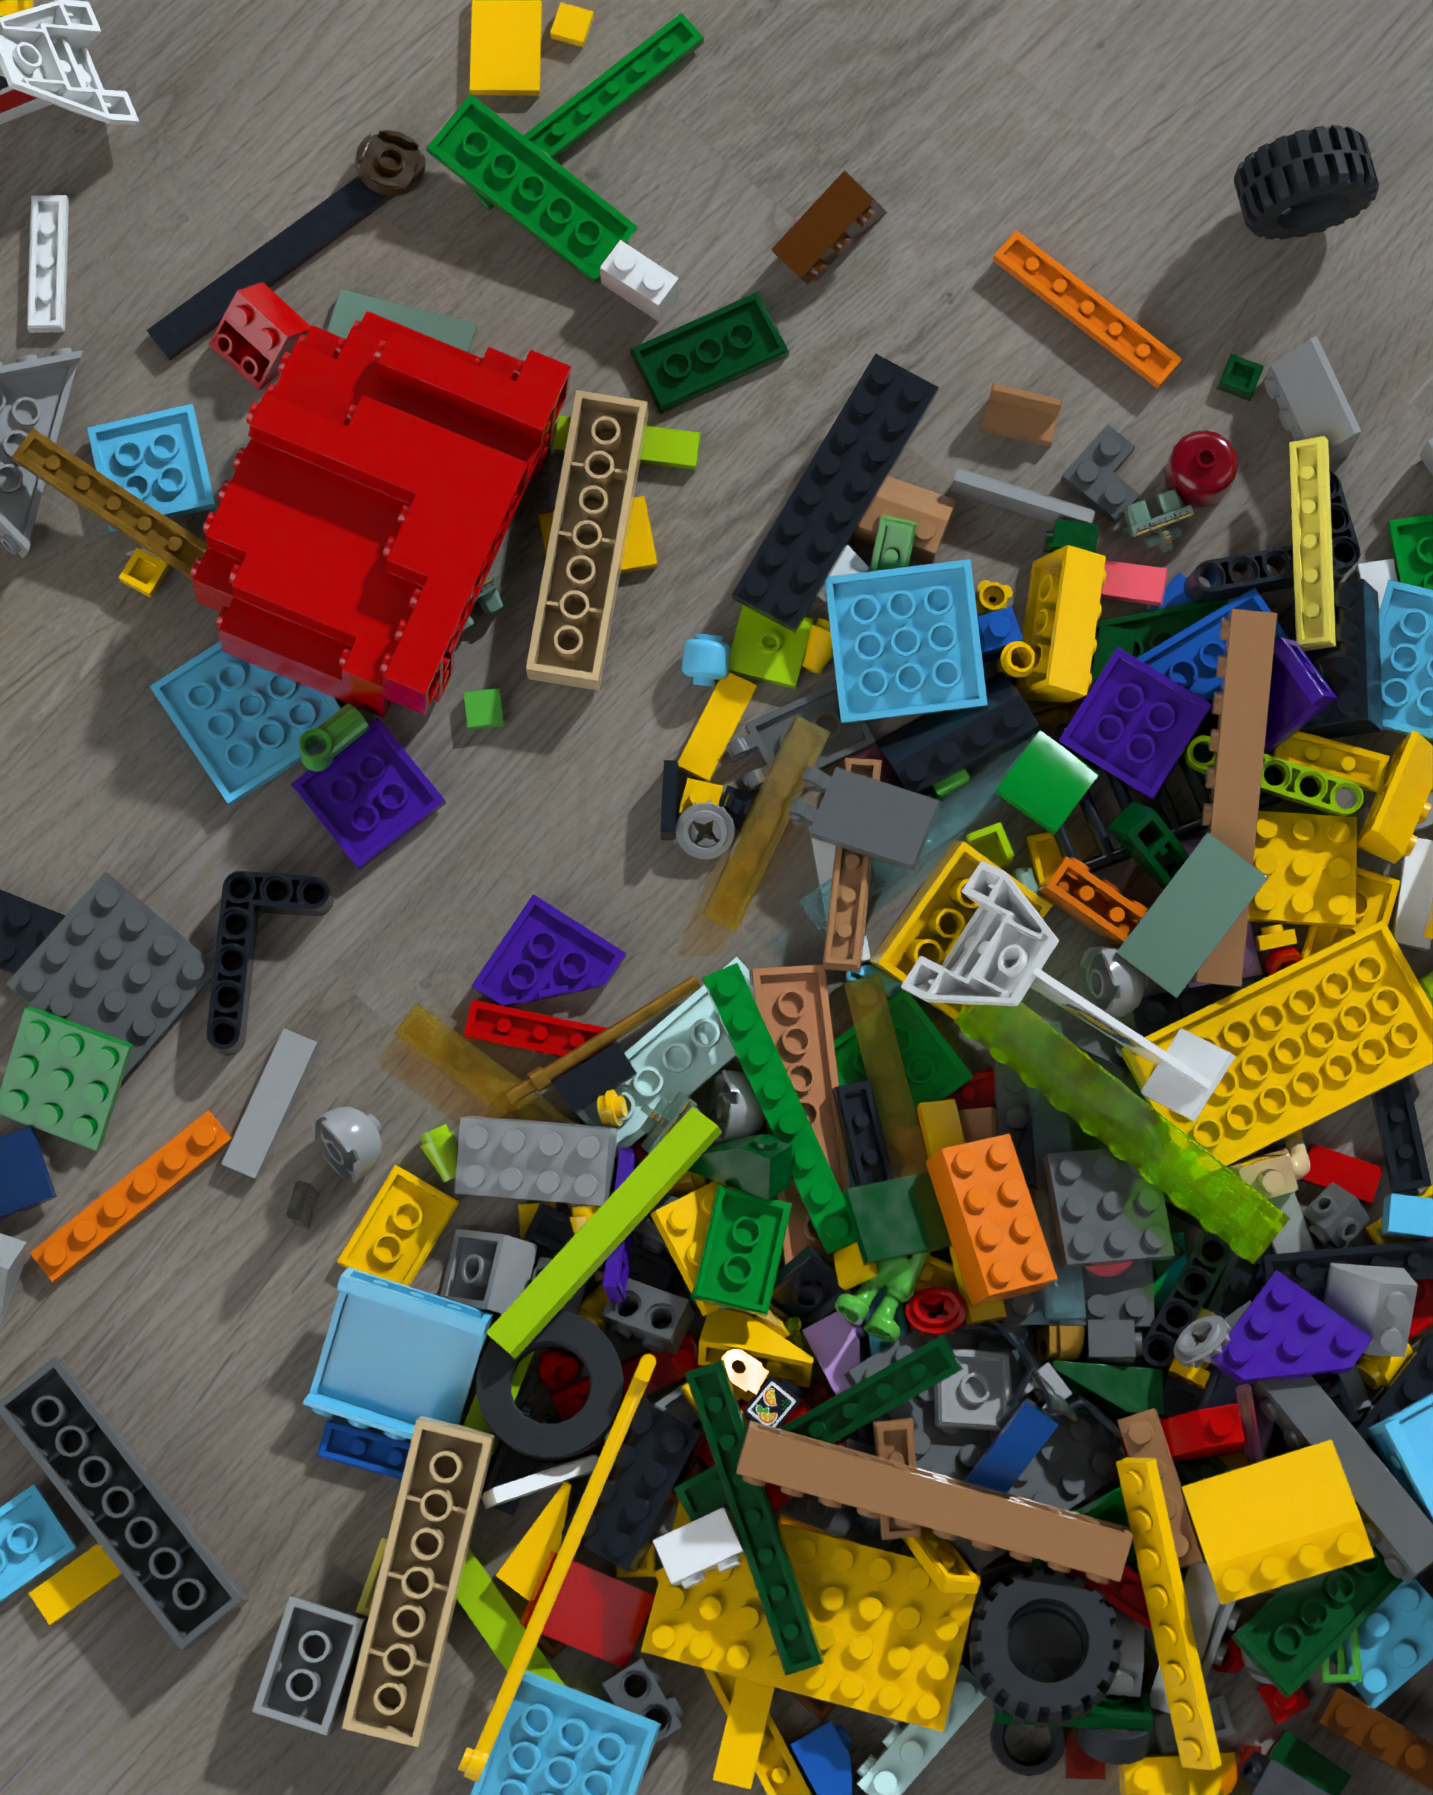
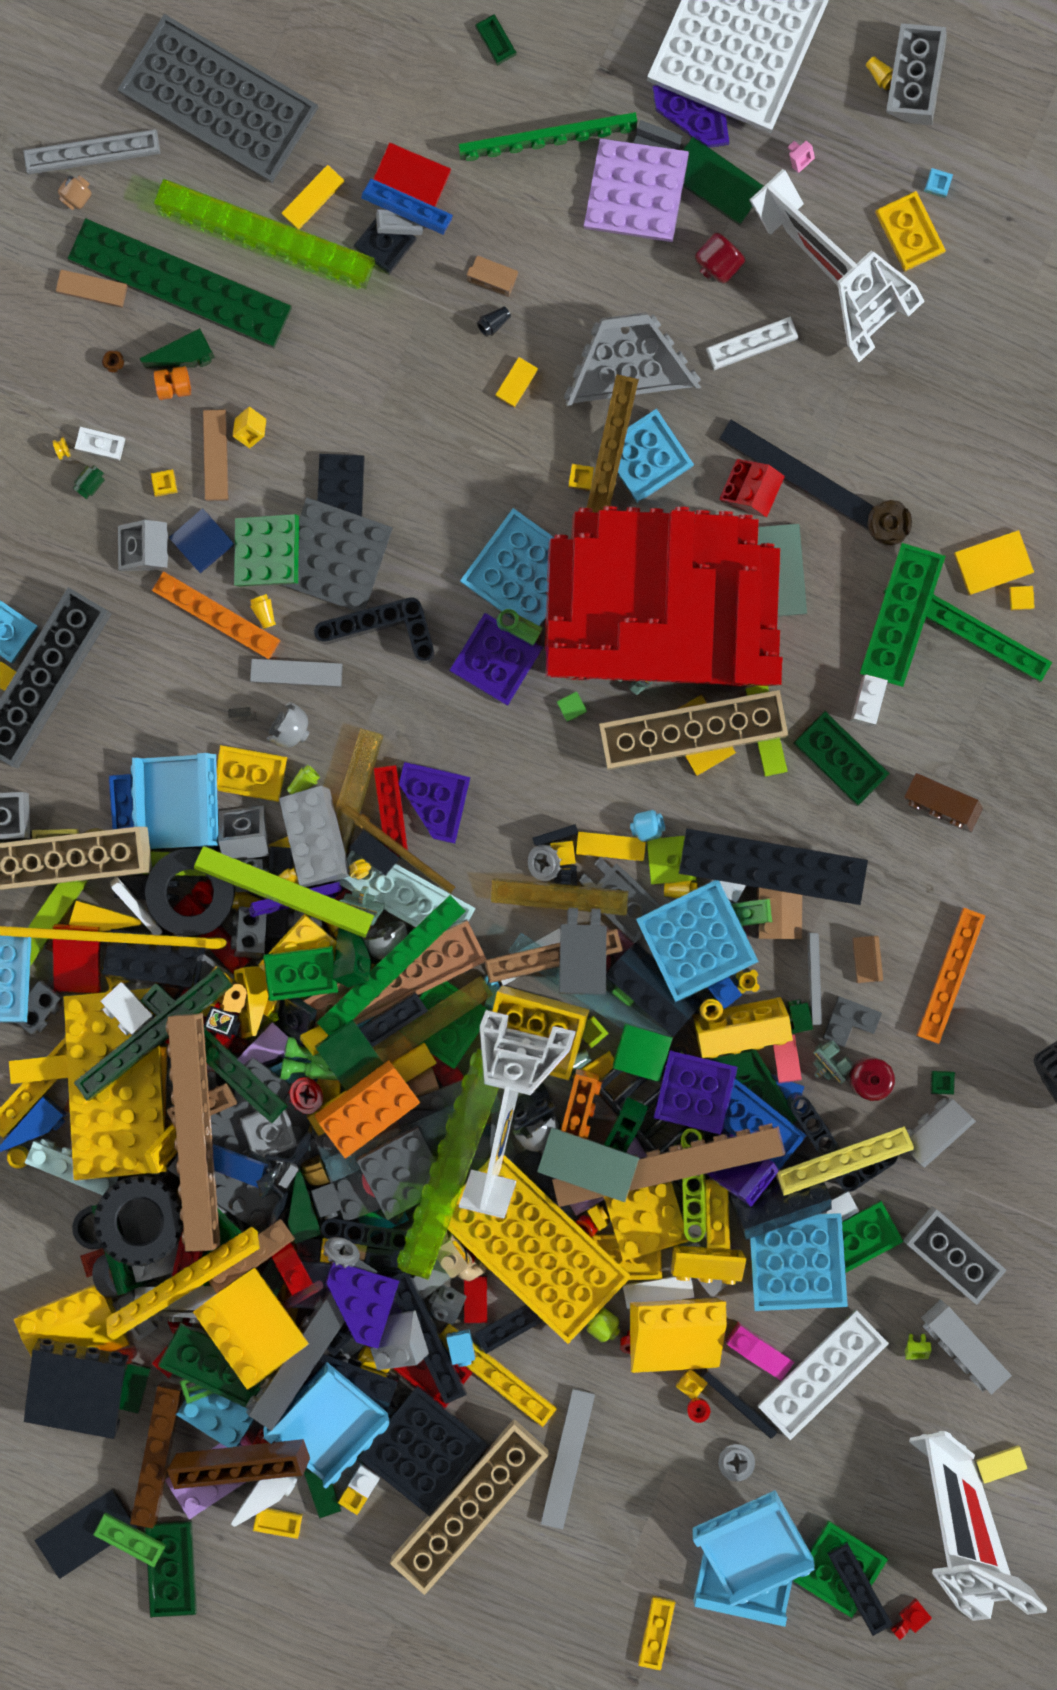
camera: 70 degrees right, 10 degrees up
(153, 1118) = (263, 610): none -> yellow cone
(1074, 968) = (532, 1107): none -> black hinge

